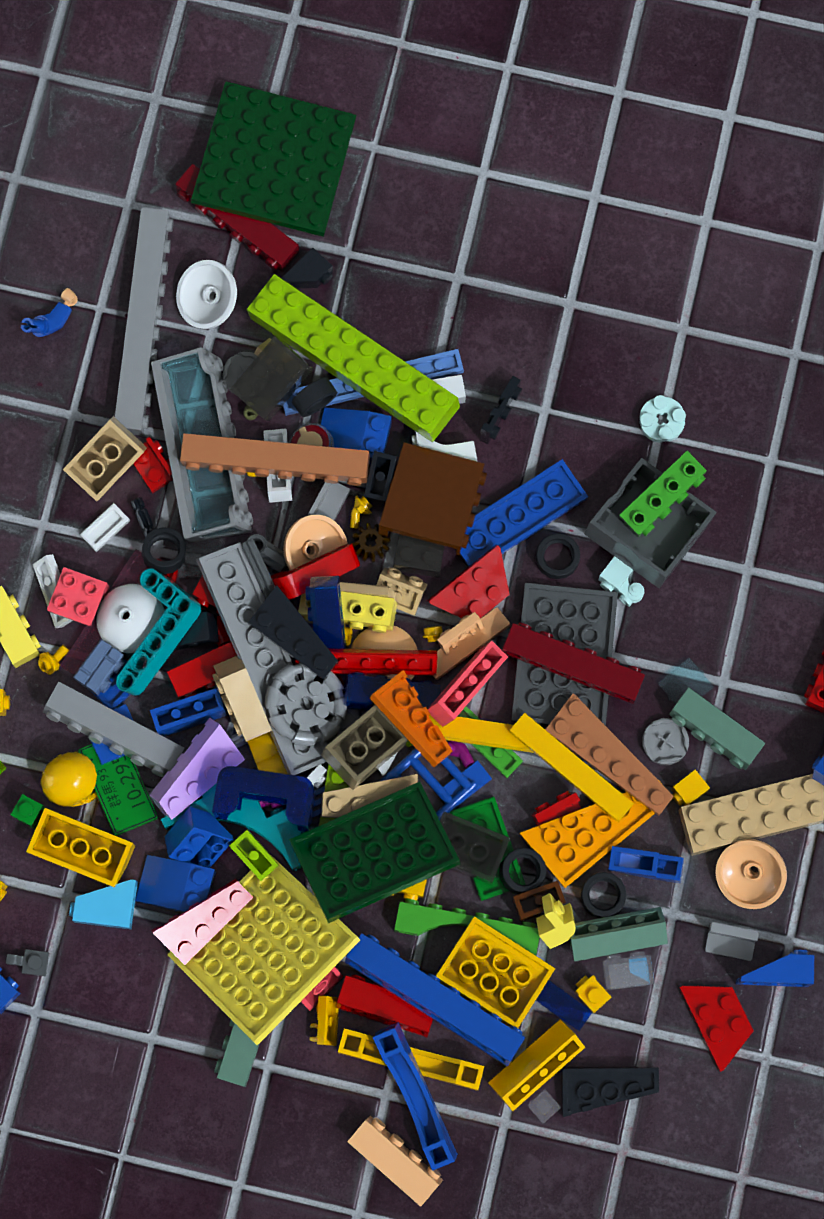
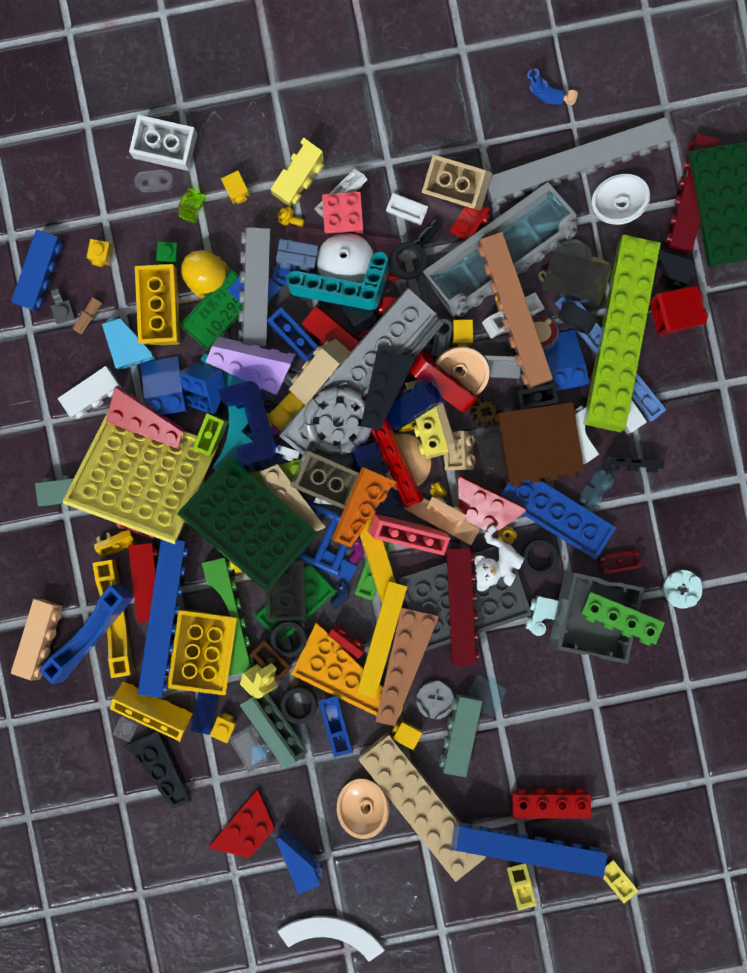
camera: 70 degrees right, 10 degrees up
(52, 936) = (87, 315): none -> medium nougat axle
(143, 971) = (89, 393): none -> white brick
(271, 527) = (462, 333): none -> yellow brick
(356, 288) = (678, 310): none -> red slope
(361, 507) = (509, 392): yellow plate -> none
(501, 791) = (342, 594): none -> dark blue arm
(507, 453) = (601, 484): none -> clear light blue hinge
(513, 585) = (507, 530): none -> yellow plate
(548, 614) = (489, 571): none -> white animal
(600, 472) = (619, 561): none -> dark red hinge
(731, 941) = (308, 813): light grey panel -> none

